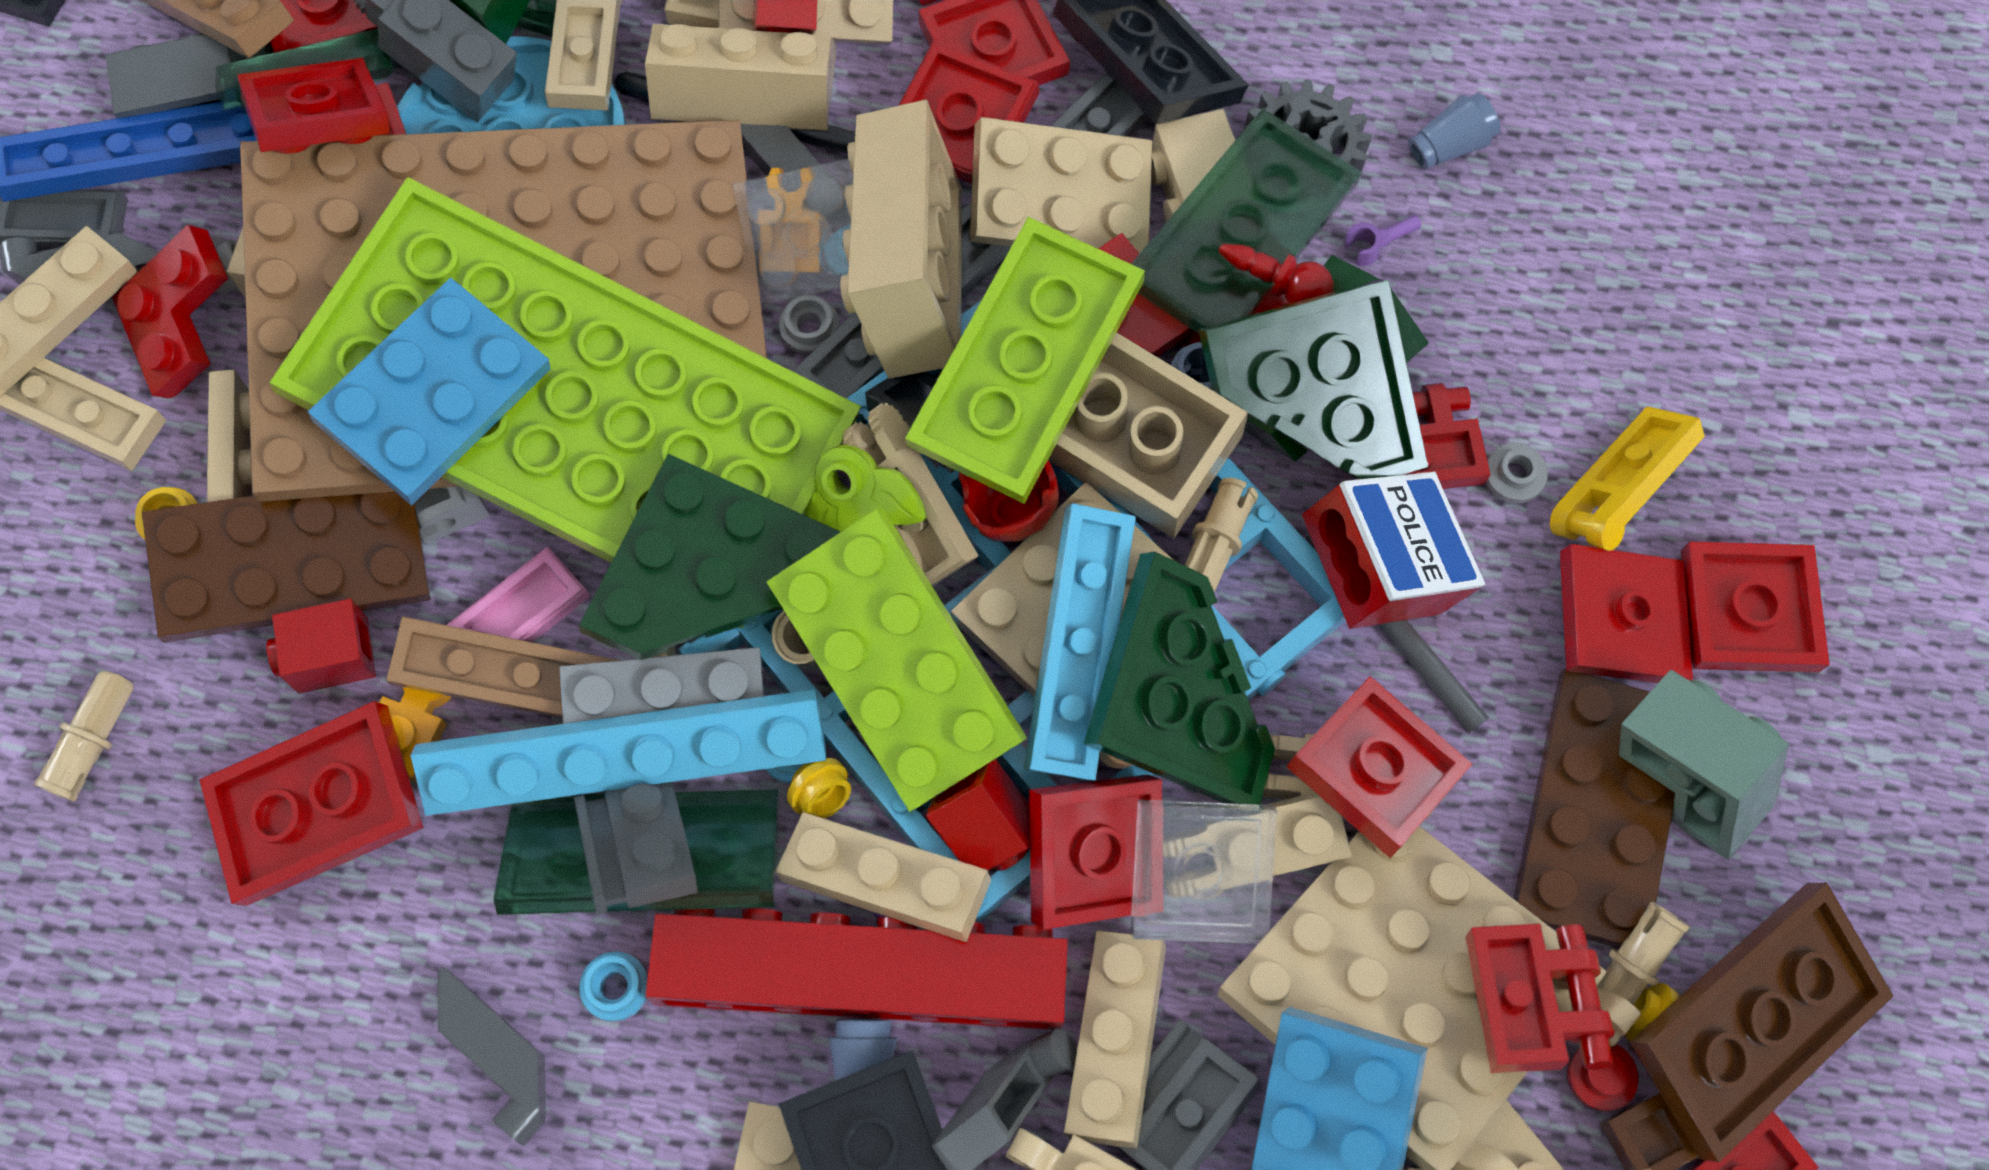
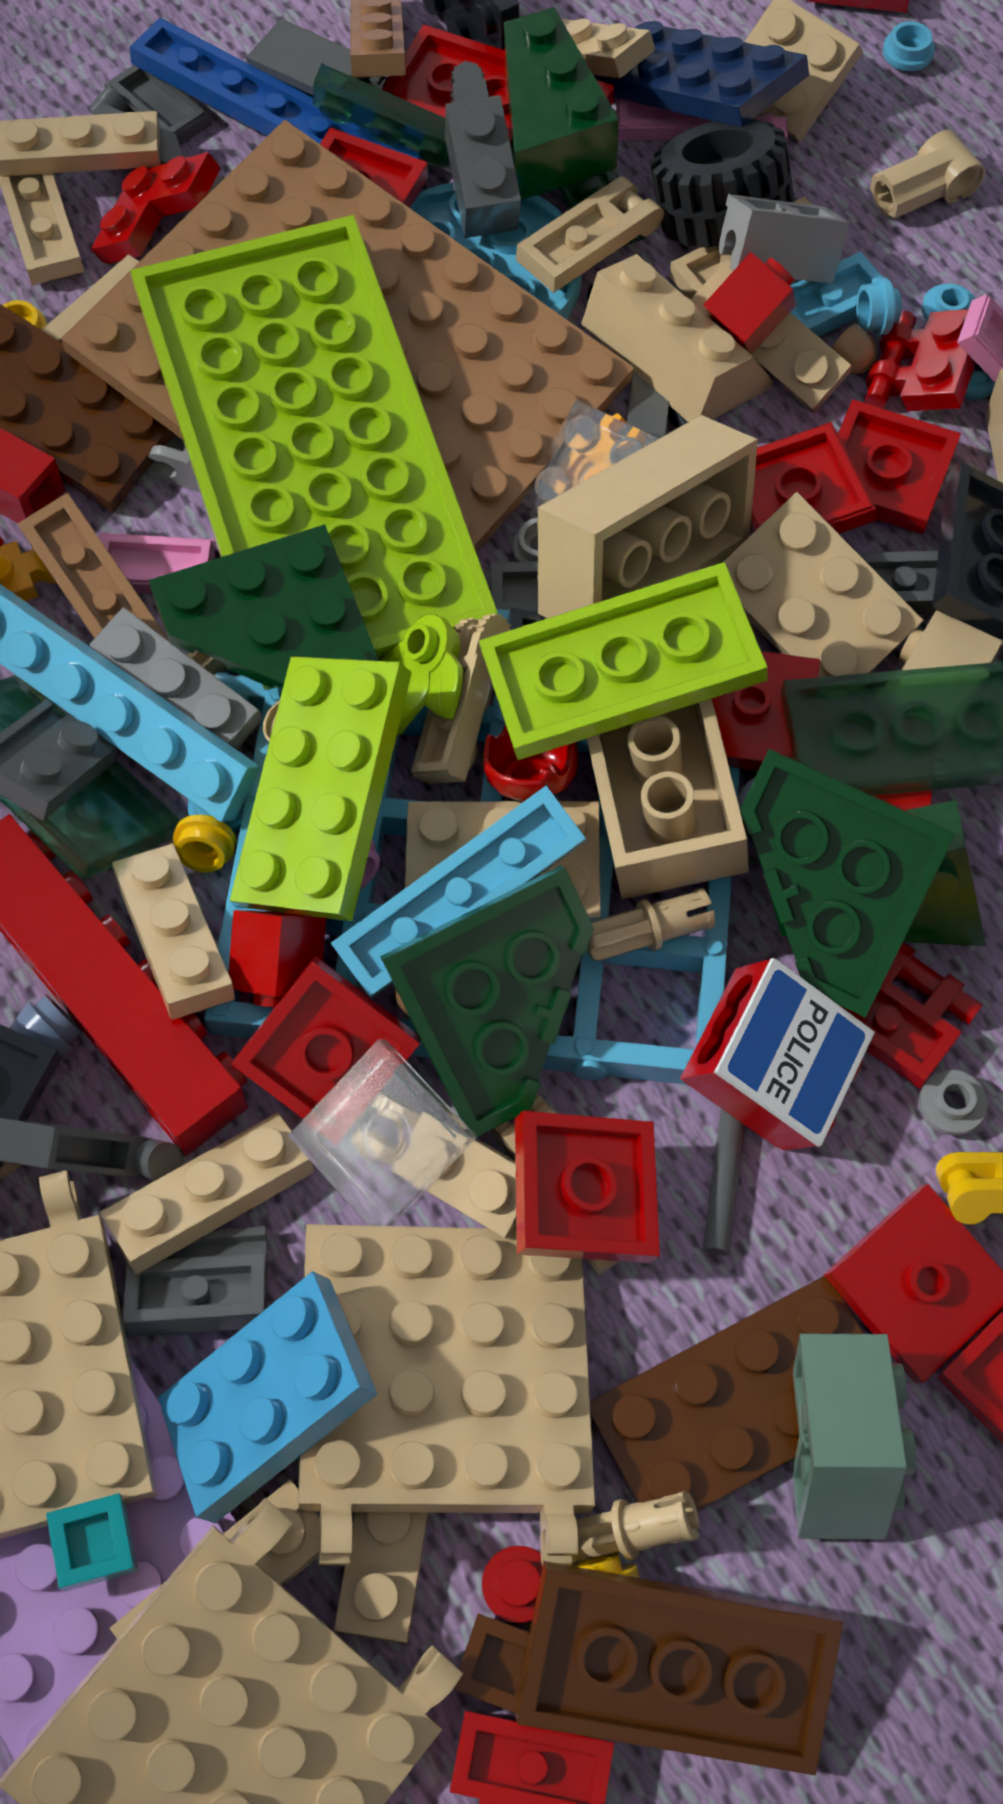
camera: 50 degrees right, 5 degrees down
(313, 105) = (350, 130): red plate -> none
(430, 390) = (219, 356): dark azure plate -> none
(1289, 278) = (899, 782): red bar -> none
(1520, 1003) = (486, 1442): red plate -> none

